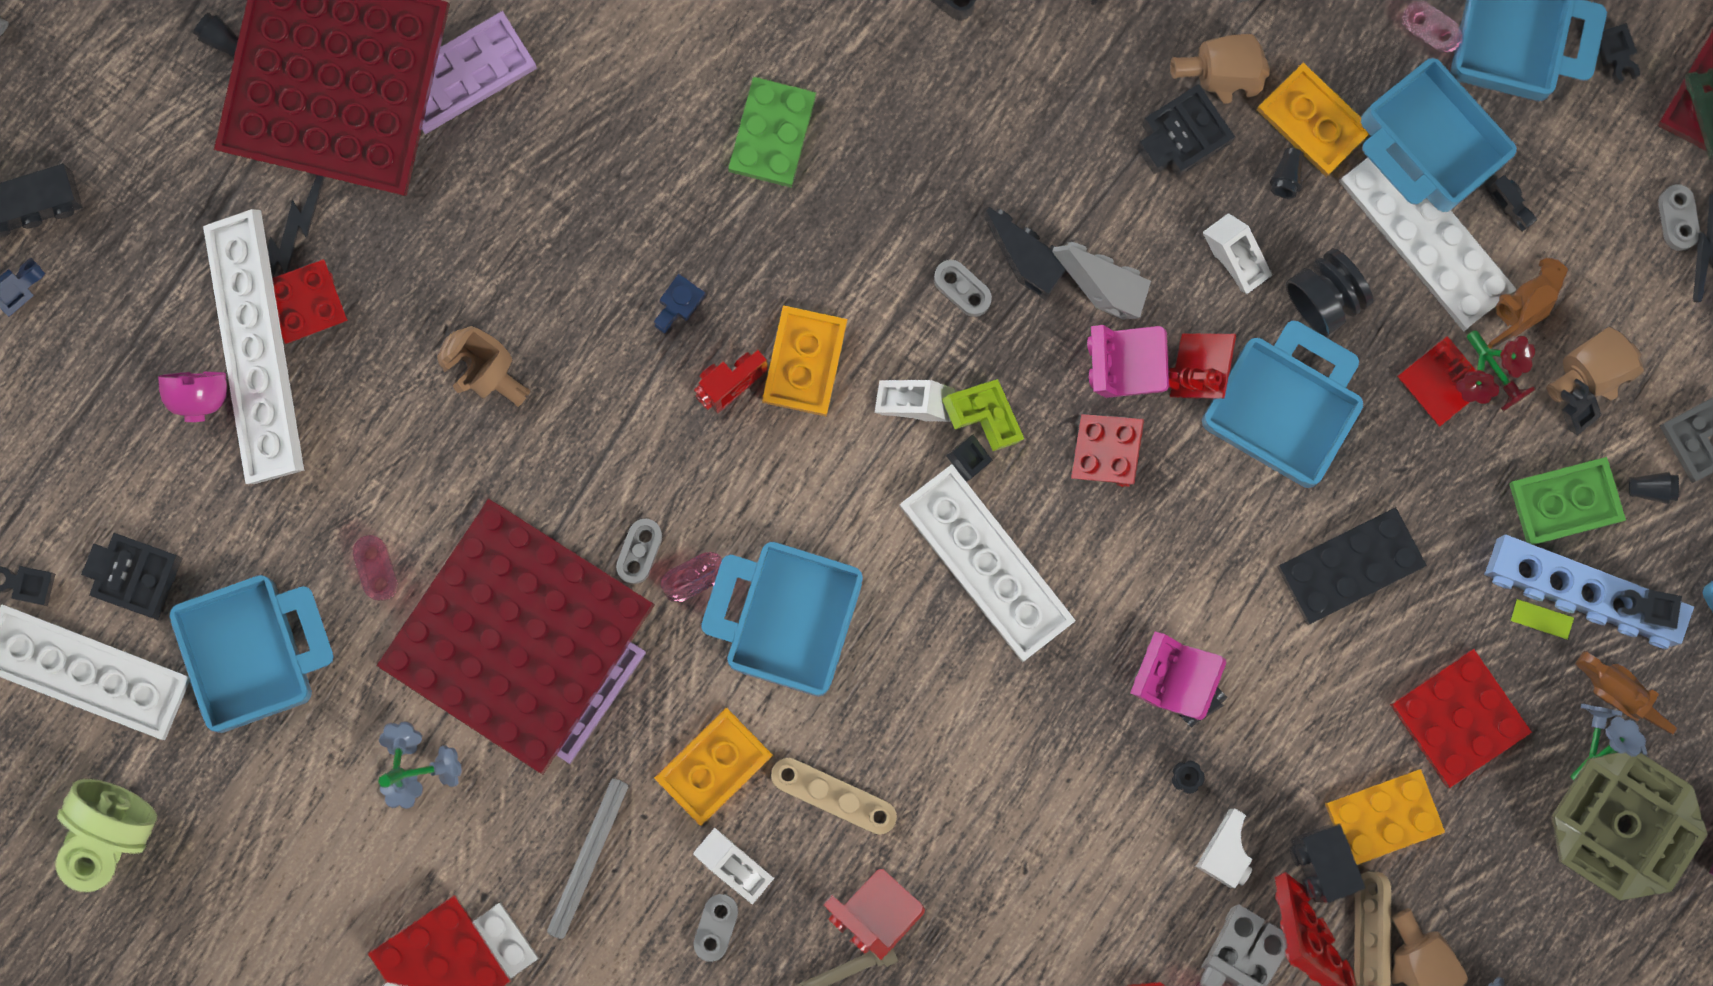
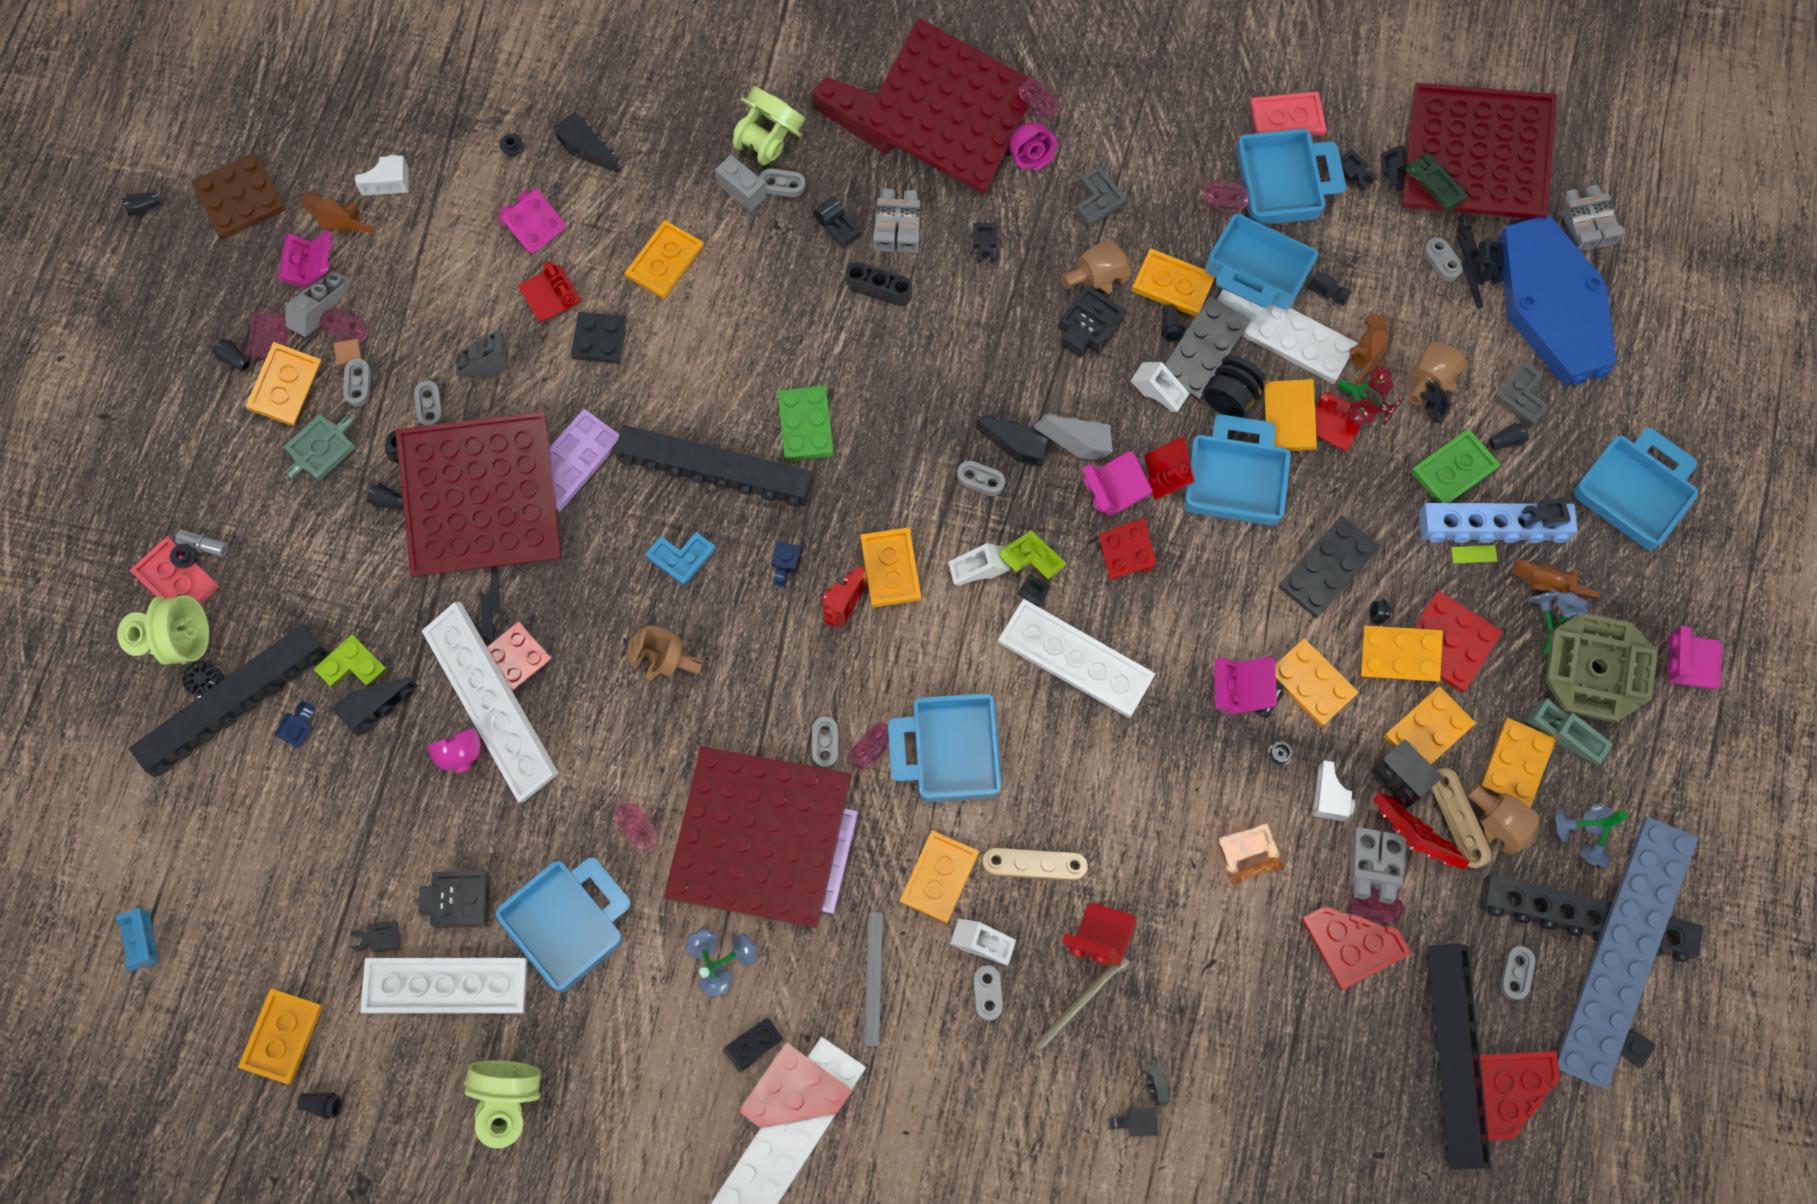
camera: 15 degrees left, 10 degrees down
(107, 226) = (348, 658): none -> lime plate
(107, 295) = (367, 705): none -> black slope
(416, 881) = (752, 1044): none -> black plate
(548, 258) = (681, 563): none -> dark azure plate
(636, 147) = (713, 465): none -> black brick
(1099, 873) = (1247, 845): none -> clear orange plate
(1267, 704) = (1313, 682): none -> light orange plate
(1318, 221) = (1206, 344): none -> plate
(1389, 352) = (1292, 411): none -> light orange tile
(1389, 647) = (1380, 611): none -> black plate
(1390, 712) = (1401, 653): none -> light orange plate
(1475, 900) = (1517, 761): none -> light orange plate
(1555, 887) = (1569, 731): none -> sand green slope
(1672, 63) = (1393, 163): none -> black plate

